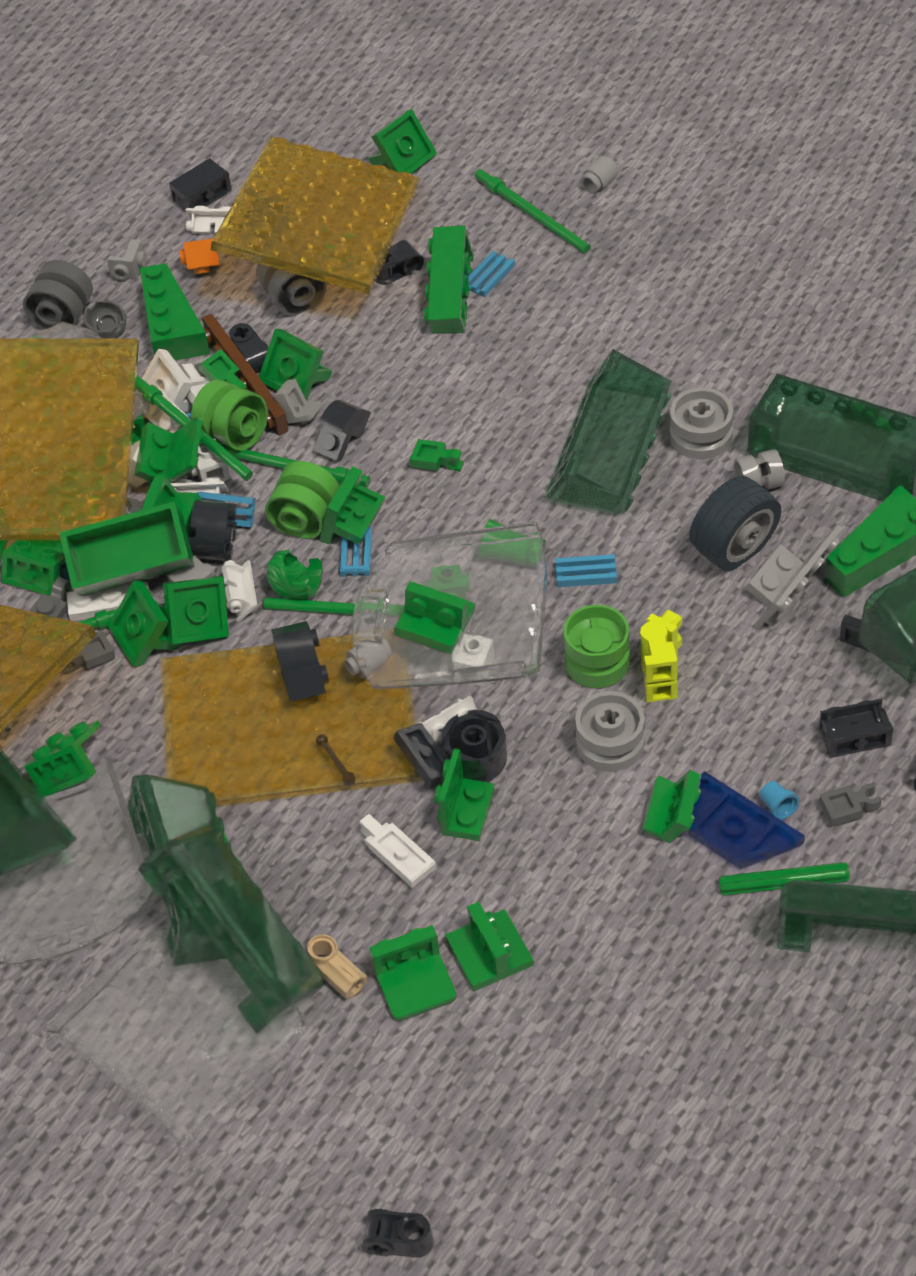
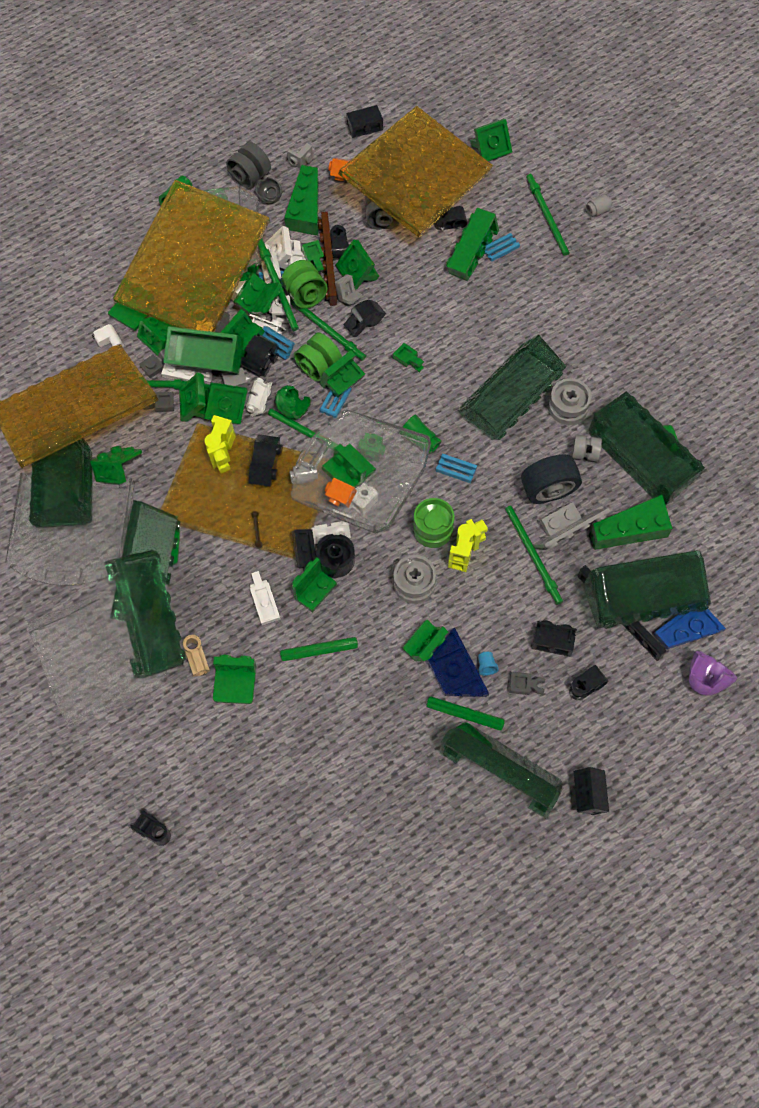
camera: 20 degrees right, 15 degrees up
(202, 218) = (355, 144): white hinge -> none
(219, 663) = (219, 441): none -> neon yellow hips
(442, 648) = (340, 493): none -> orange brick
(488, 947) = (283, 681): green bracket -> none
(523, 880) = (319, 649): none -> green axle
(808, 664) = (550, 584): none -> green bar

